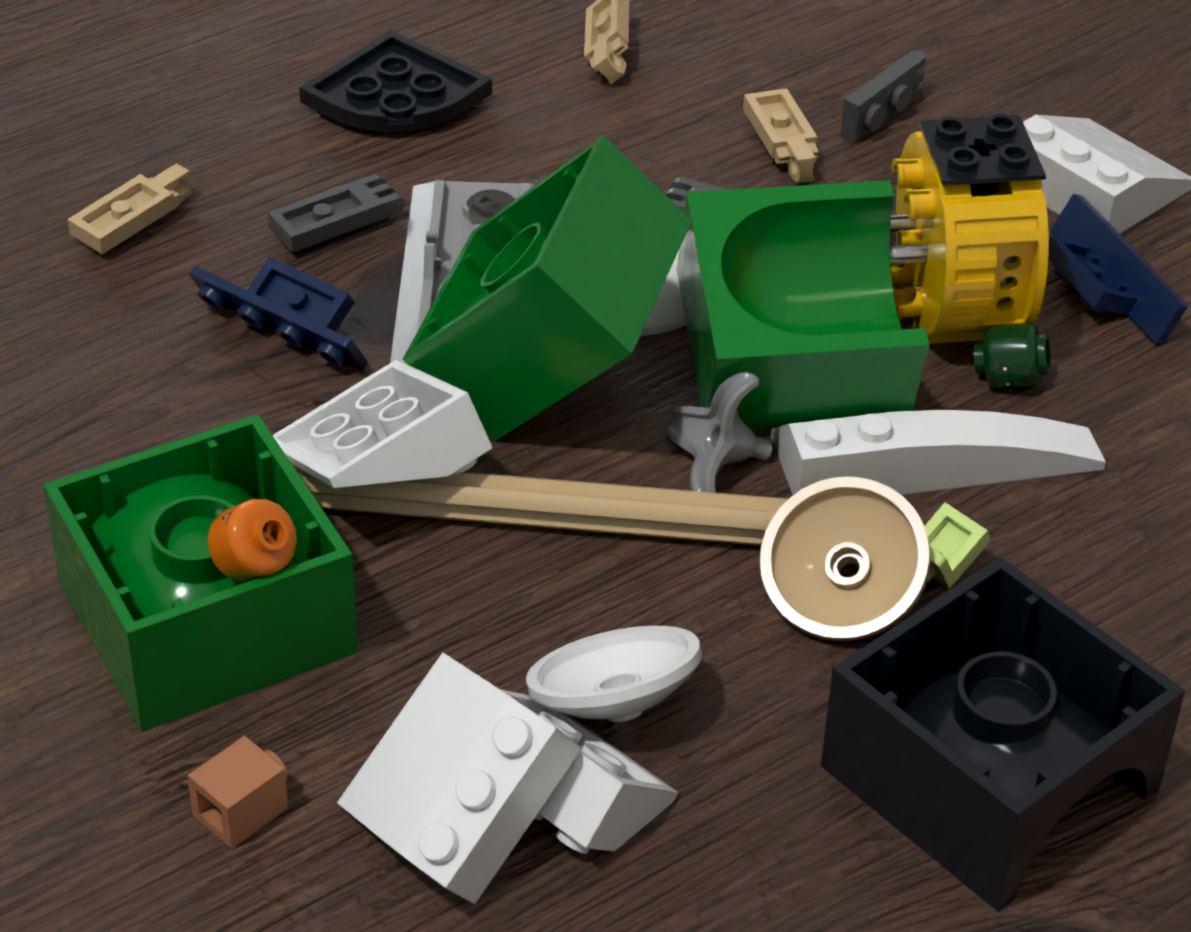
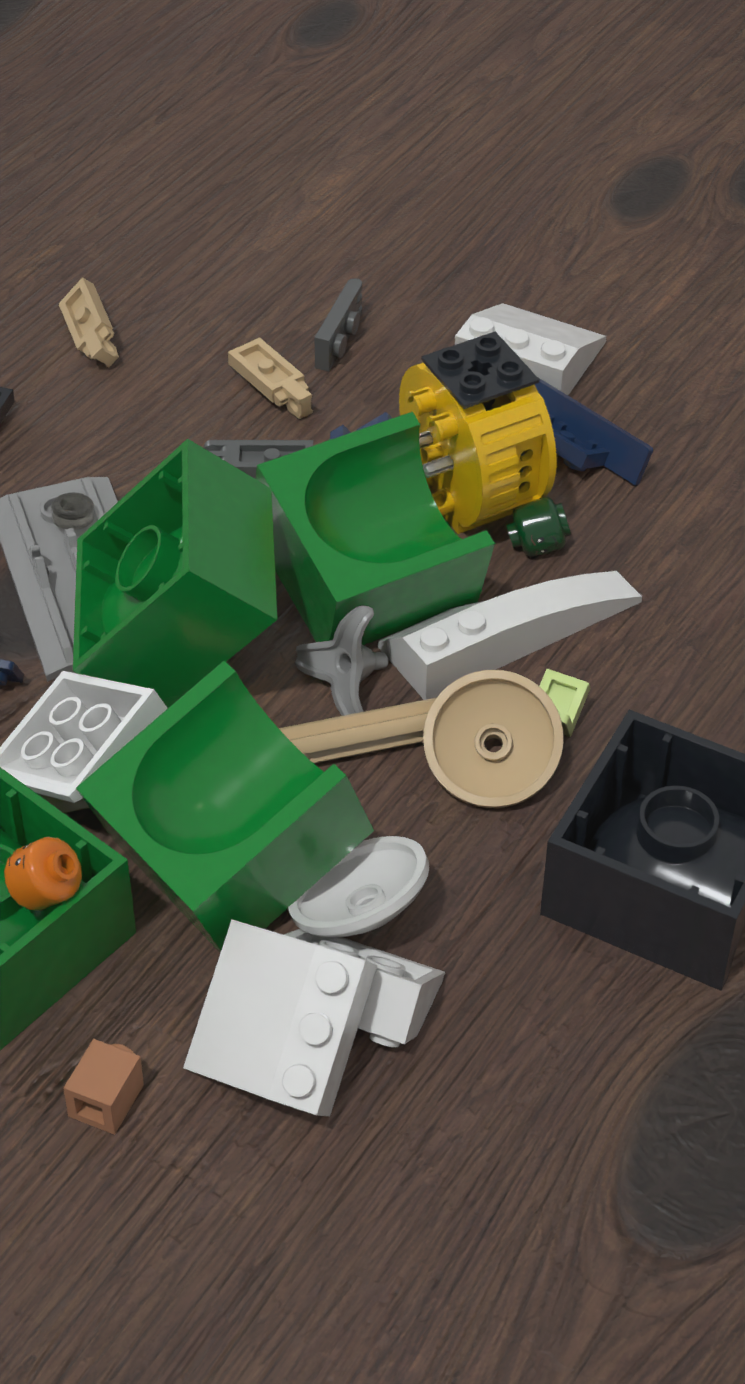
camera: 20 degrees left, 5 degrees up
(494, 538) = (225, 808): none -> green piece

